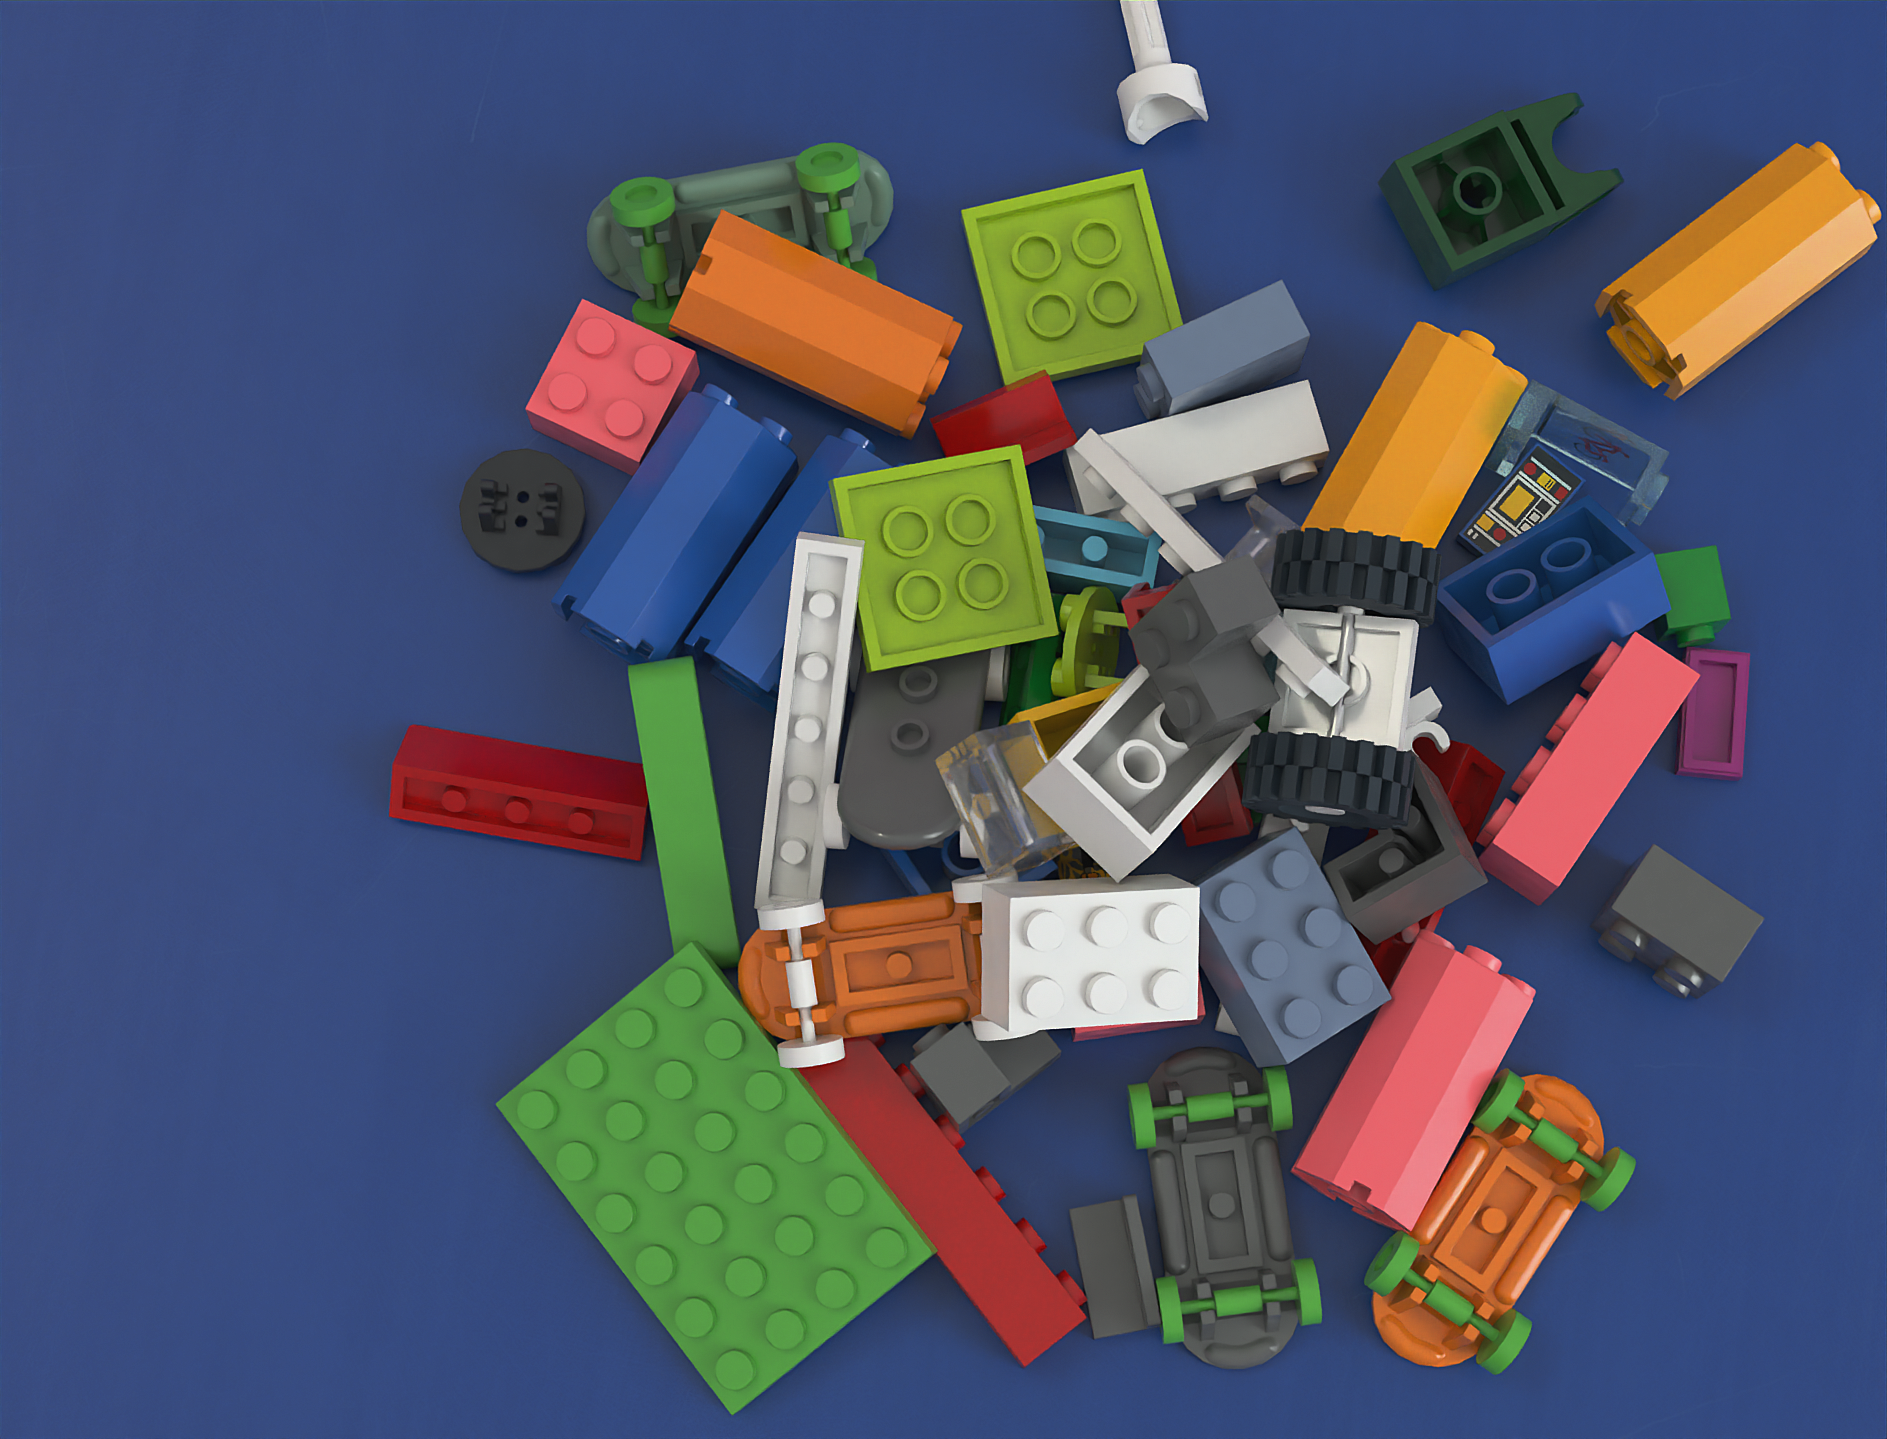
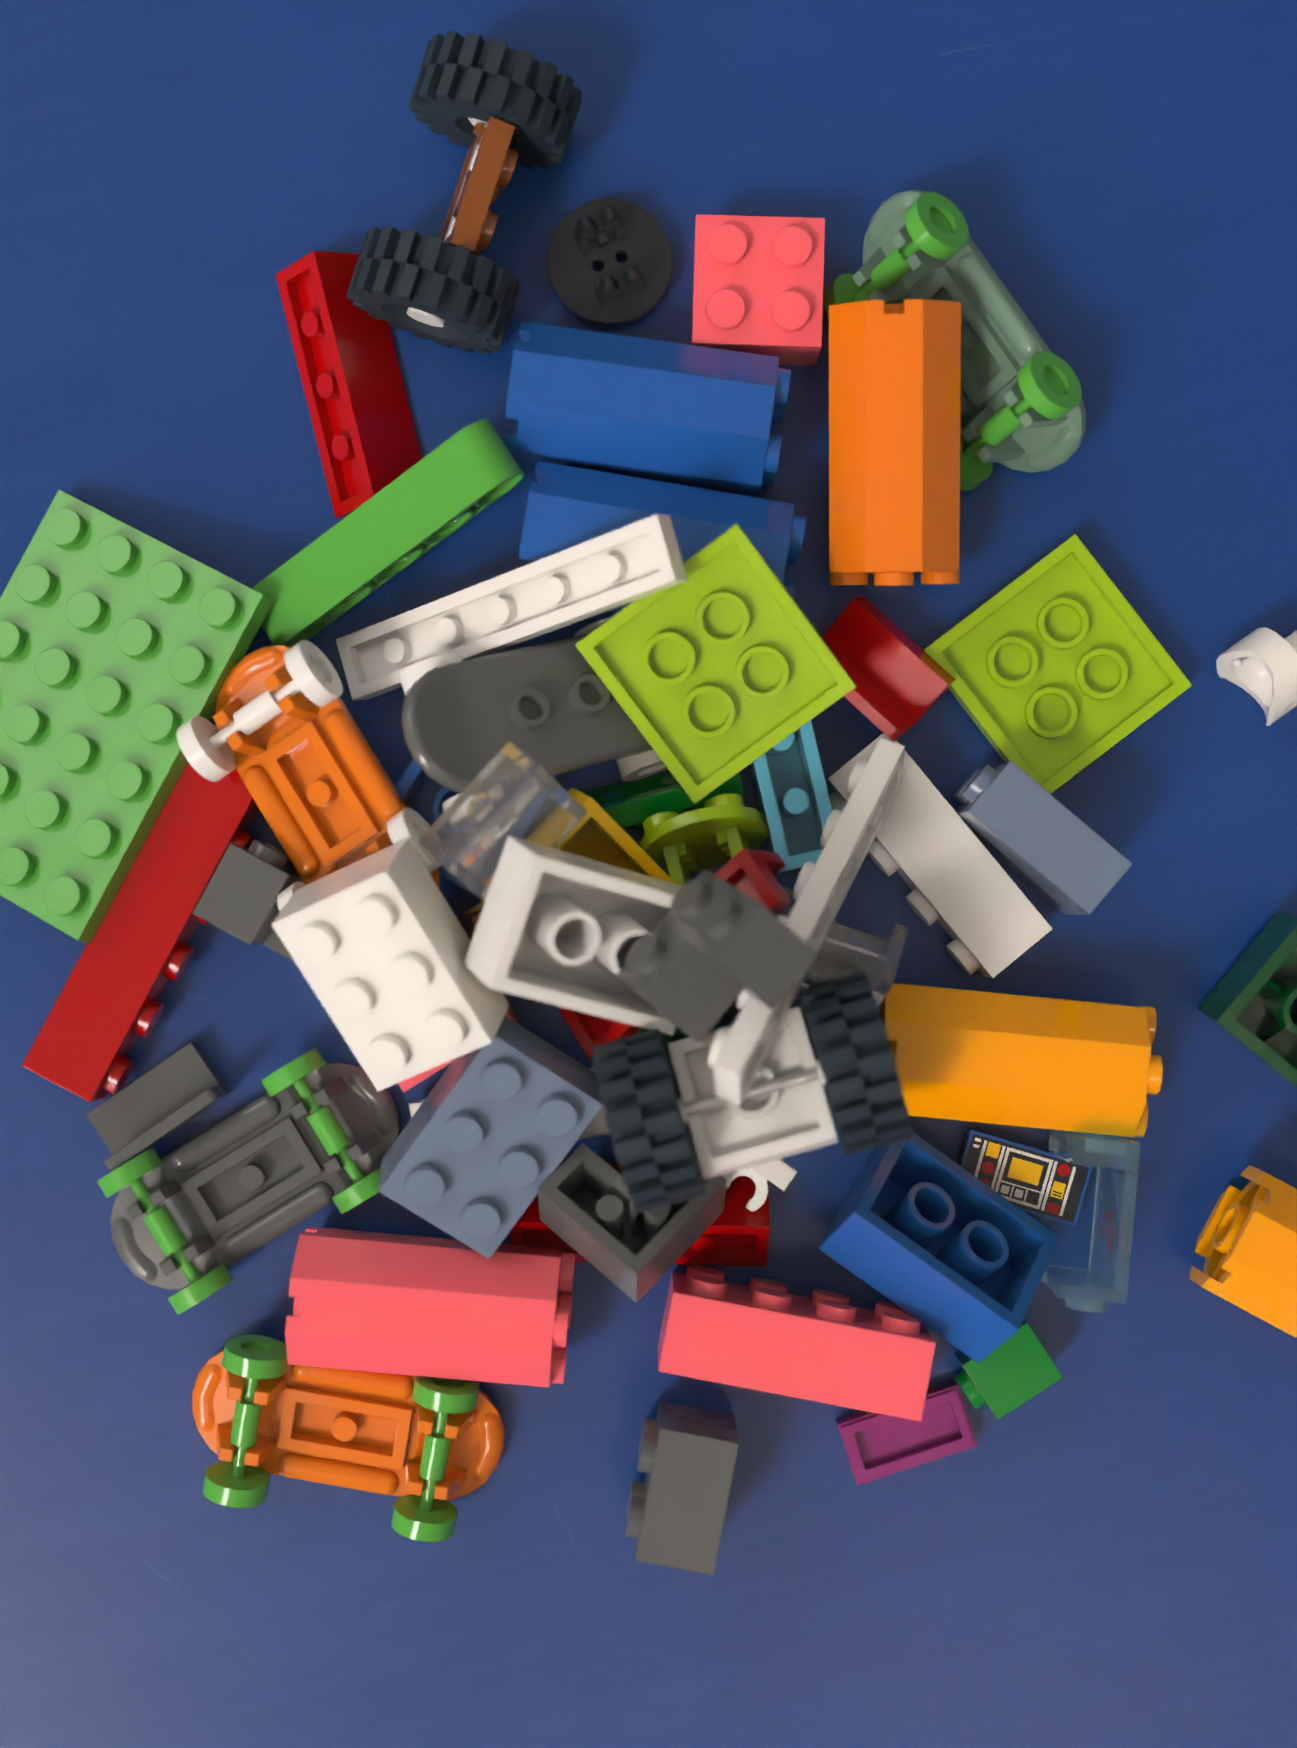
camera: 70 degrees right, 10 degrees up
(356, 540) = (506, 114): none -> black plate

